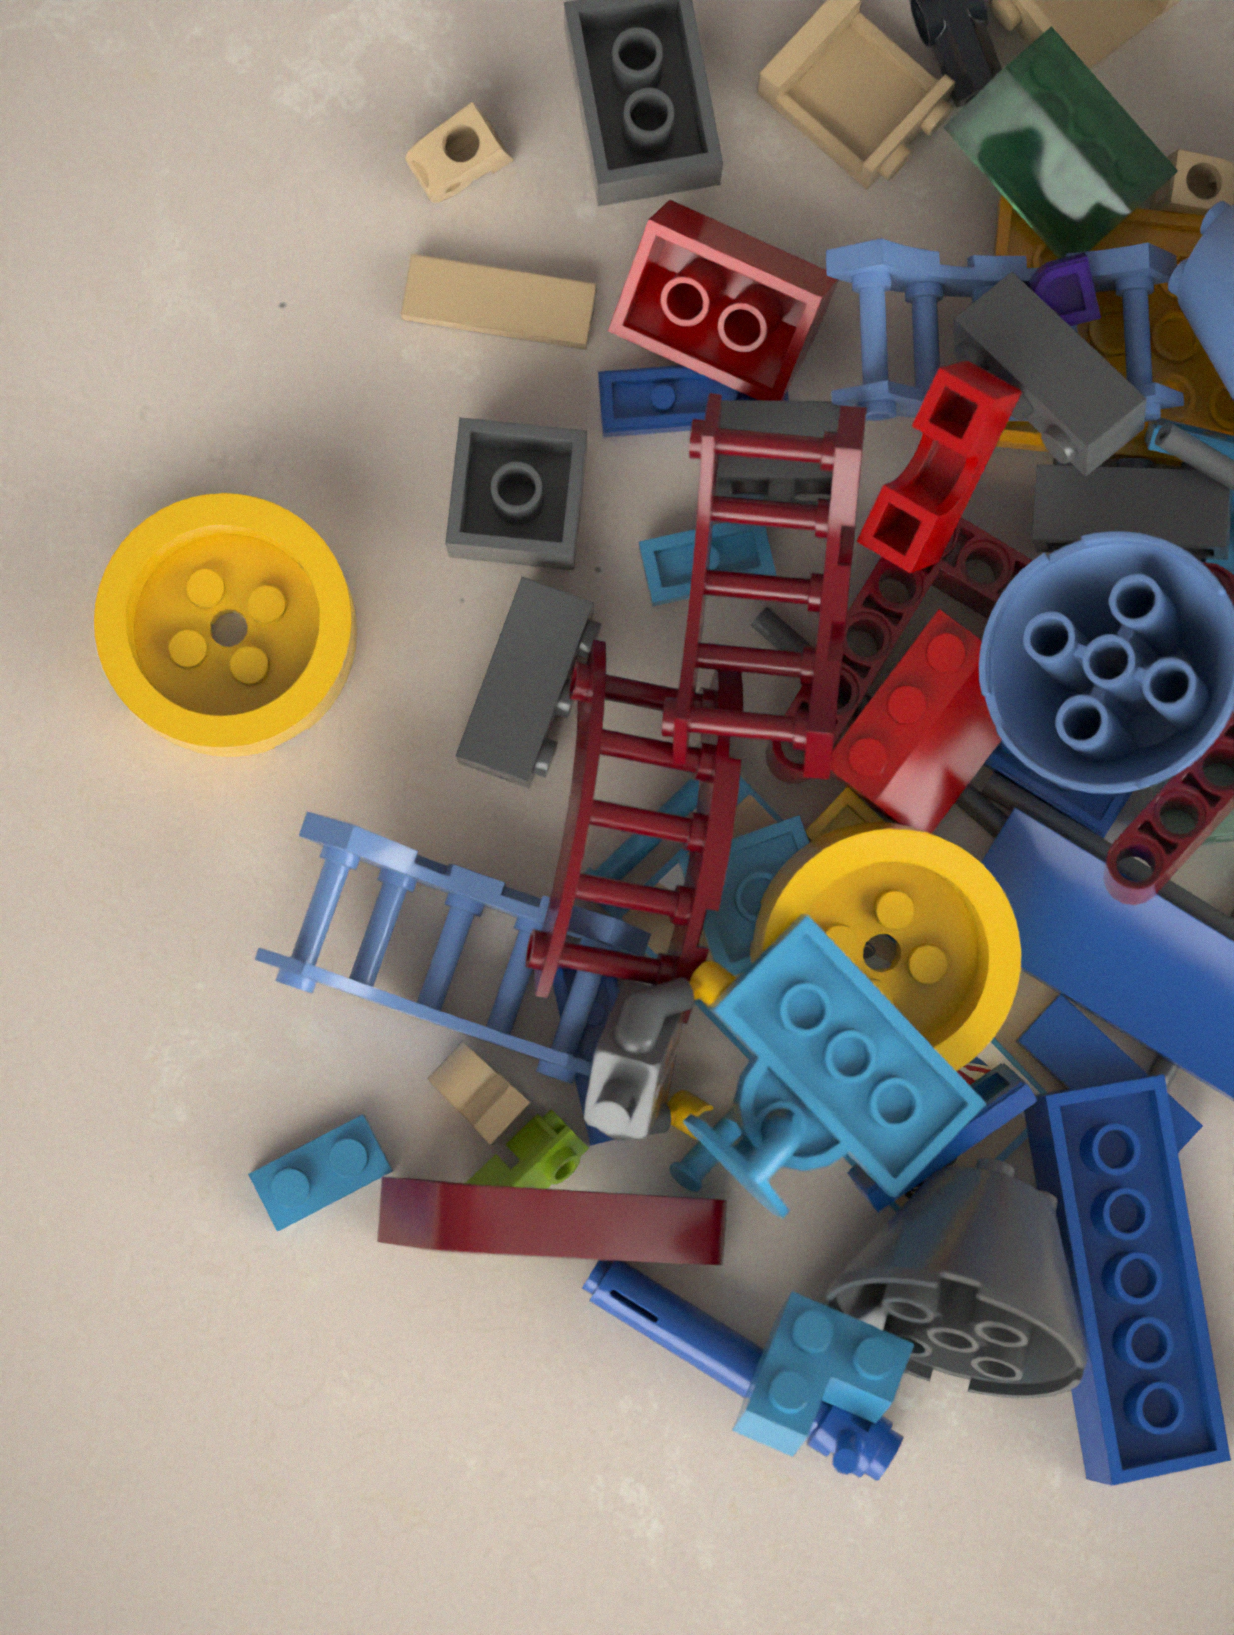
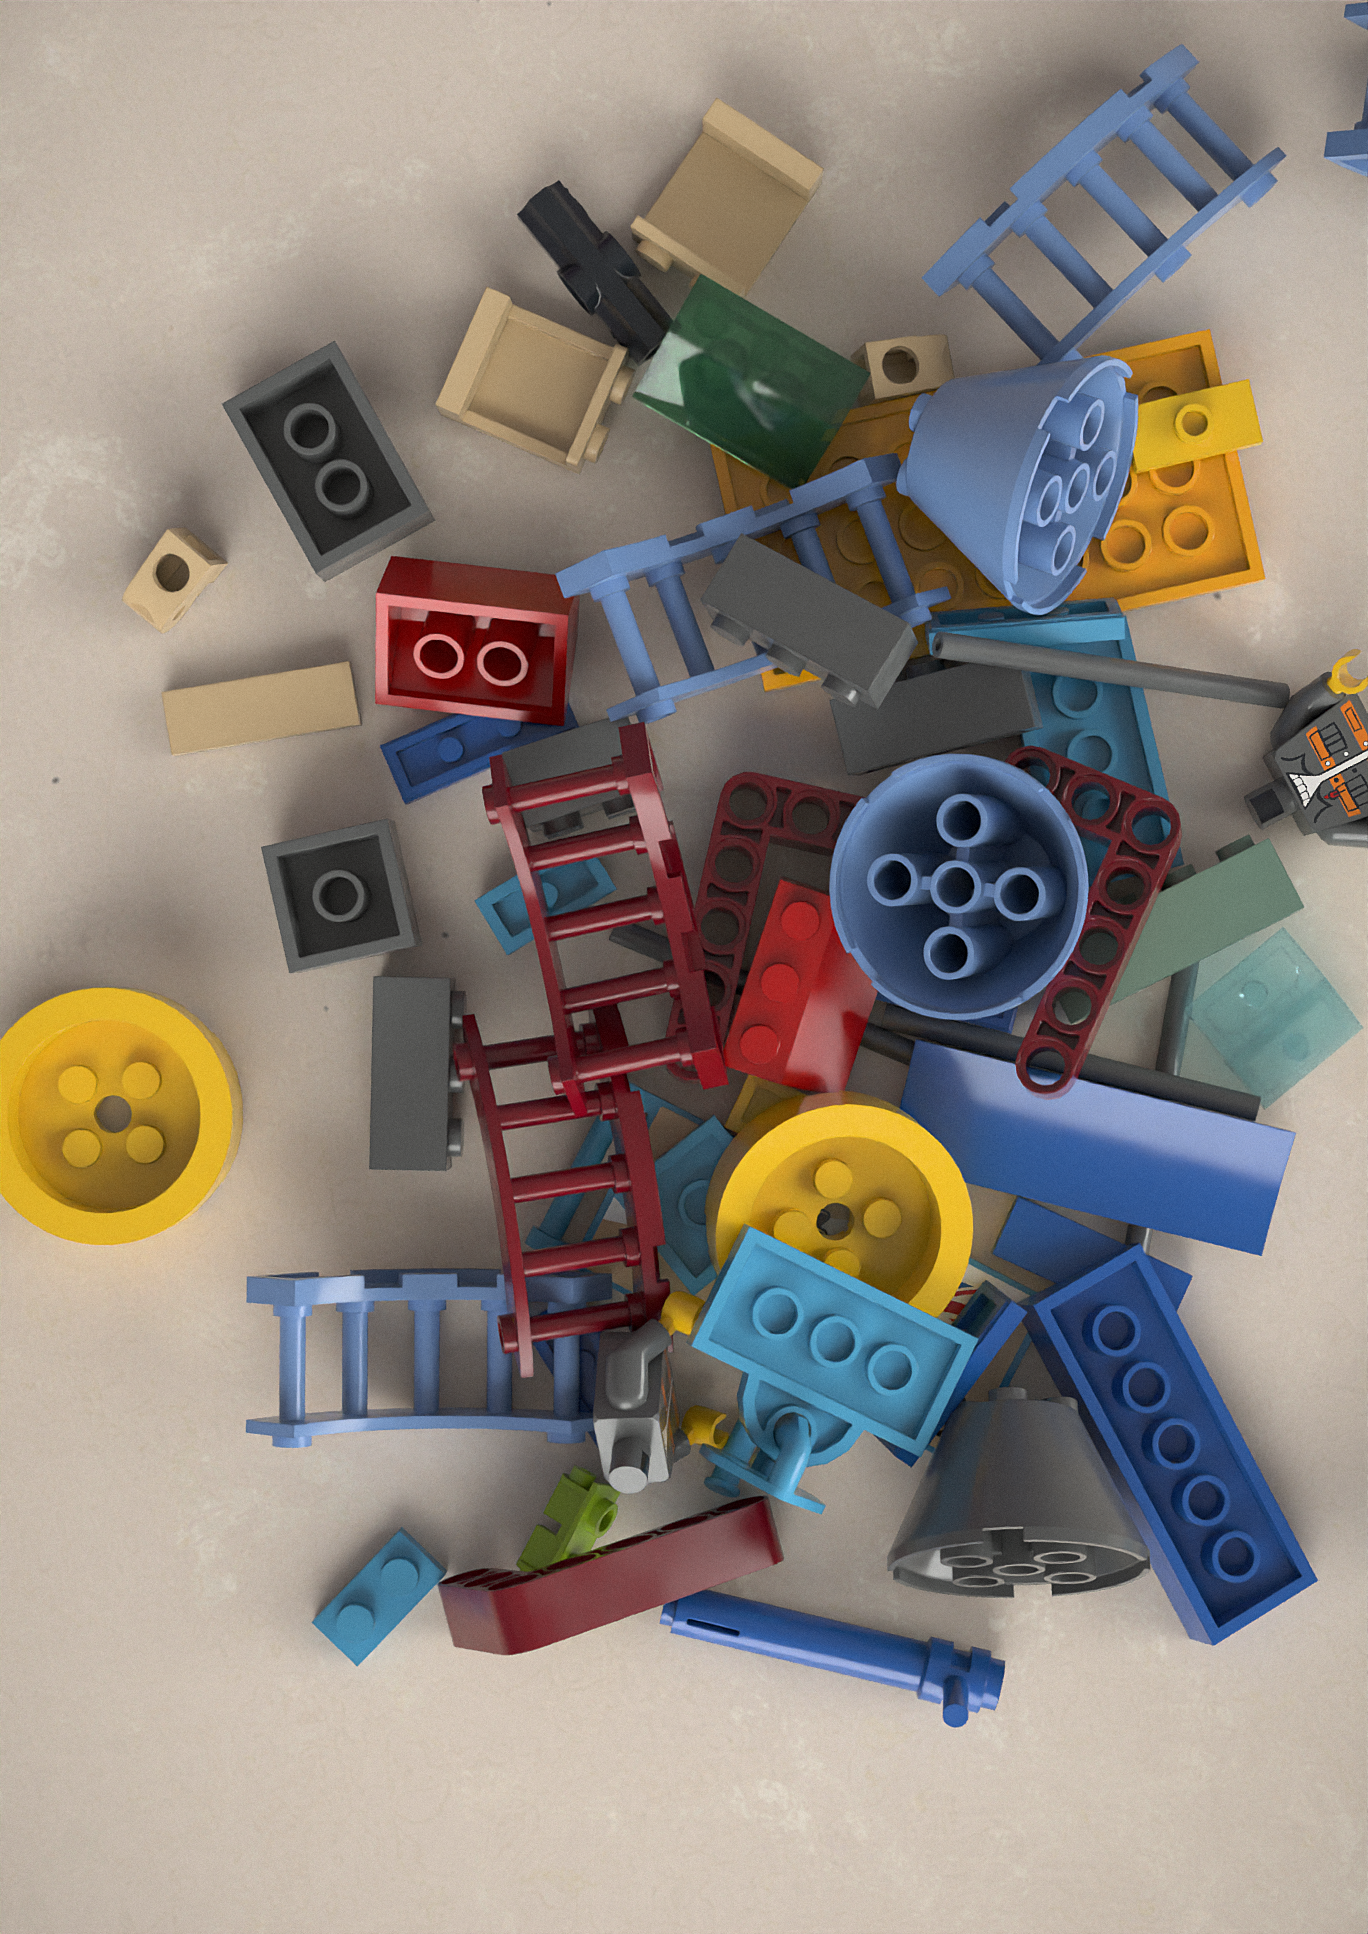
camera: 15 degrees left, 5 degrees up
(478, 1092) = (501, 1474): tan leg -> none
(818, 1358) = (894, 1622): dark azure brick -> none
(959, 431) = (741, 711): red arch -> none
(1067, 288) = (800, 529): dark purple tile -> none

